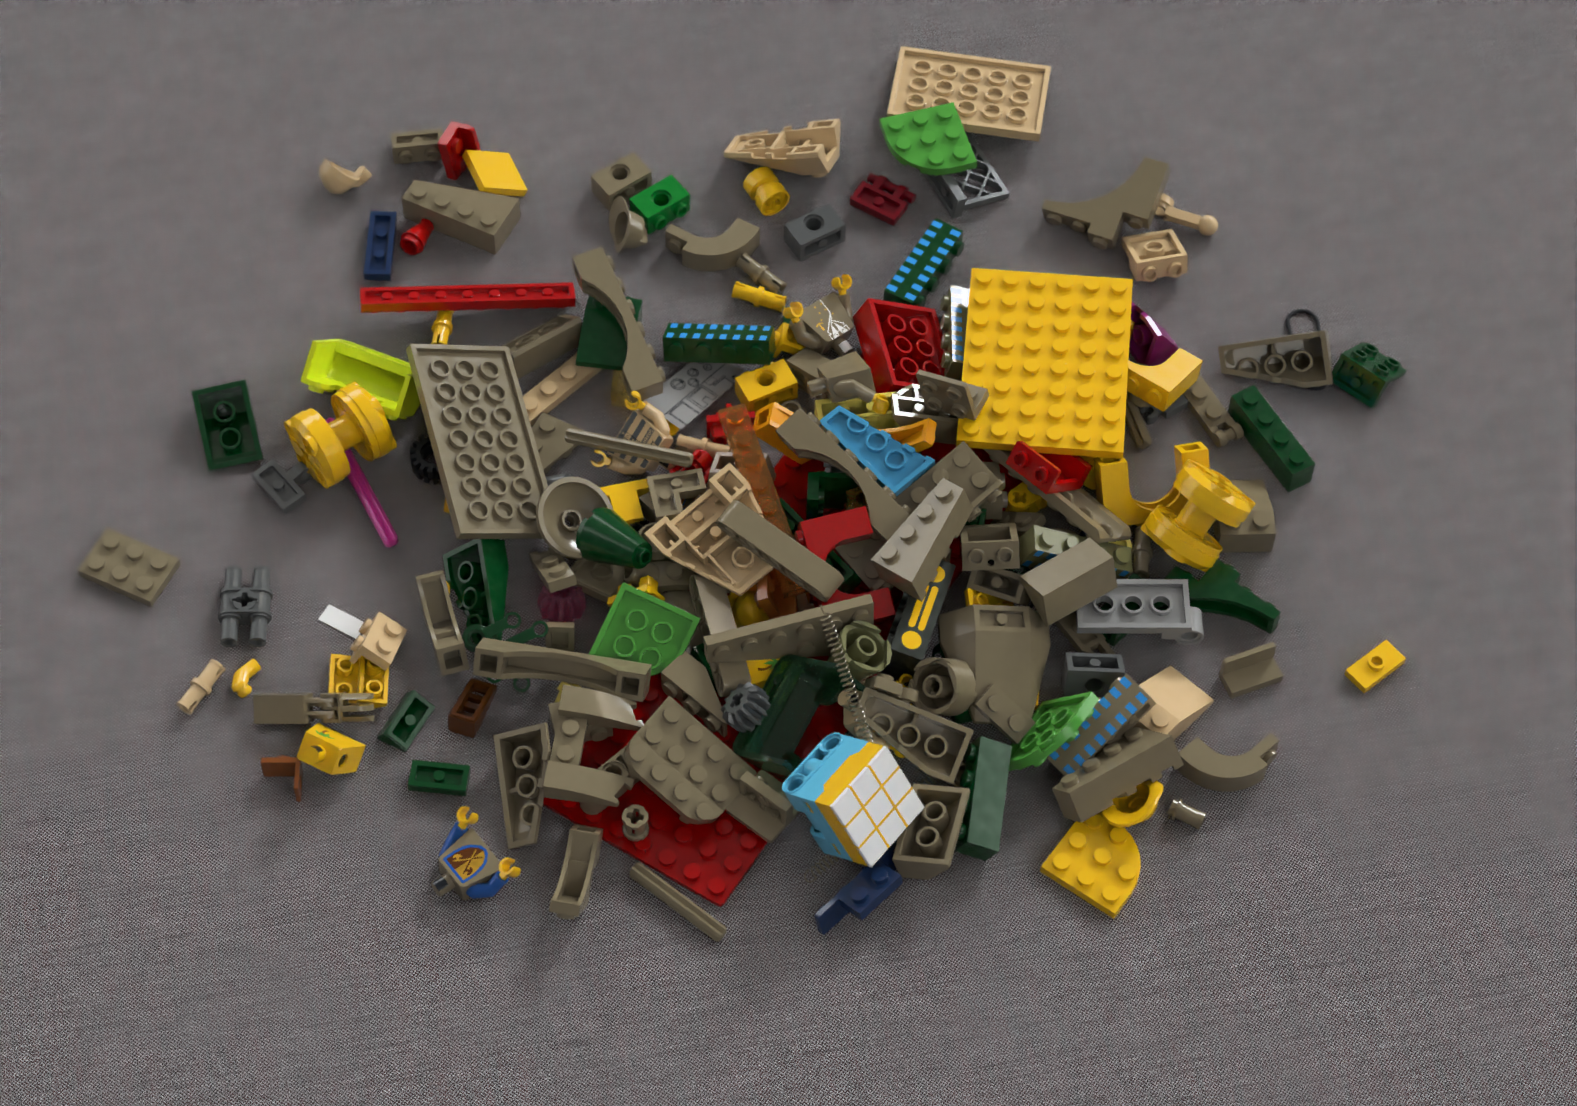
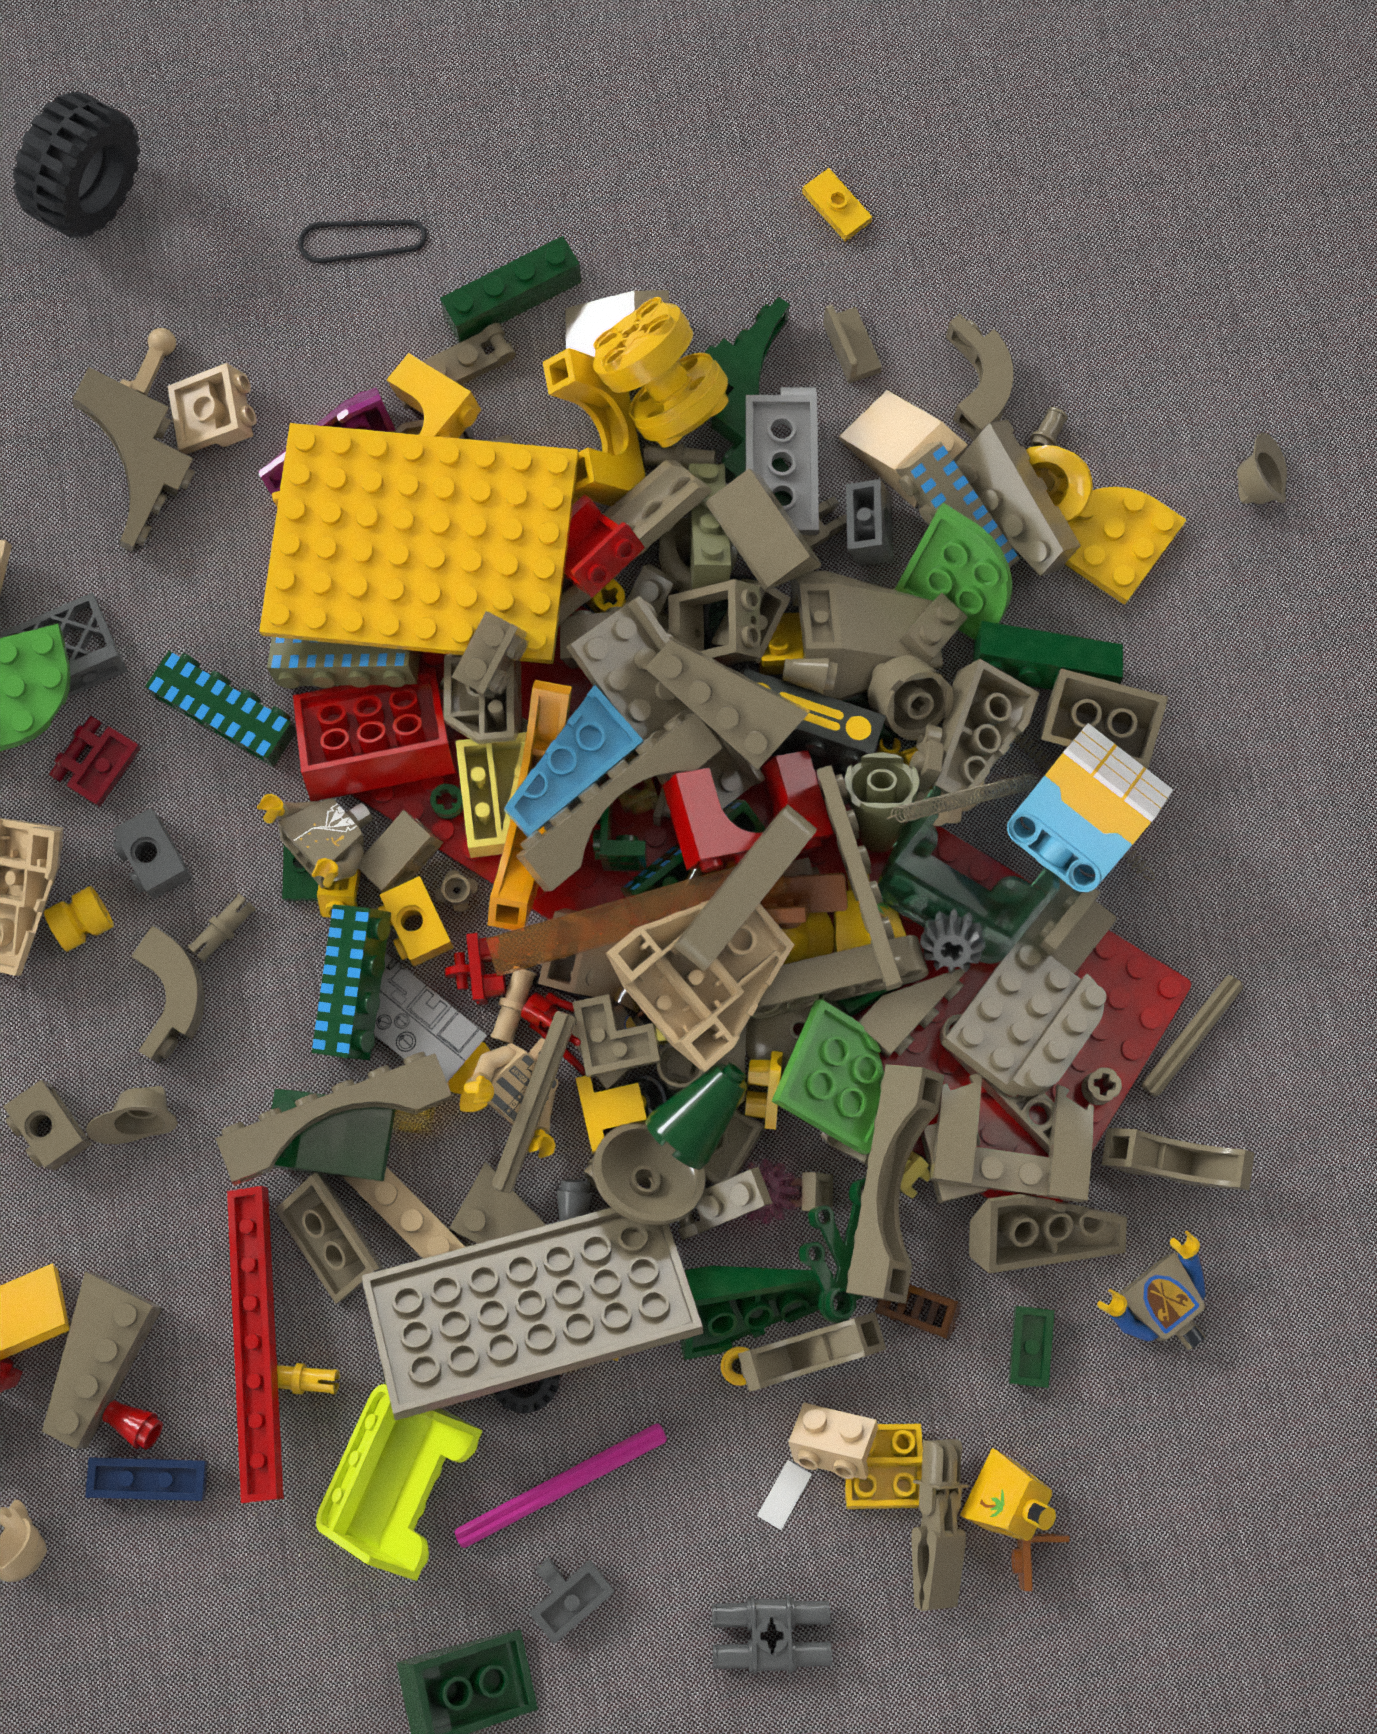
camera: 90 degrees left, 20 degrees up
(200, 686) = (900, 1688): tan pin -> none
(242, 676) = (884, 1631): yellow arm -> none
(358, 424) = (522, 1535): yellow piece -> none
(406, 721) = (941, 1398): dark green slope -> none
(661, 203) = (73, 1059): green brick -> none
(759, 296) = (259, 931): yellow pin -> none
(847, 379) = (447, 801): dark tan torso -> none
(862, 893) = (1189, 809): dark blue bracket -> none
(952, 609) = (811, 673): none -> dark tan cone
(1162, 973) = (1263, 474): none -> dark tan piece
(1287, 359) = (386, 257): dark tan wedge -> none
(1343, 136) = (76, 164): none -> black tyre
(1366, 373) = (410, 168): dark green bracket -> none

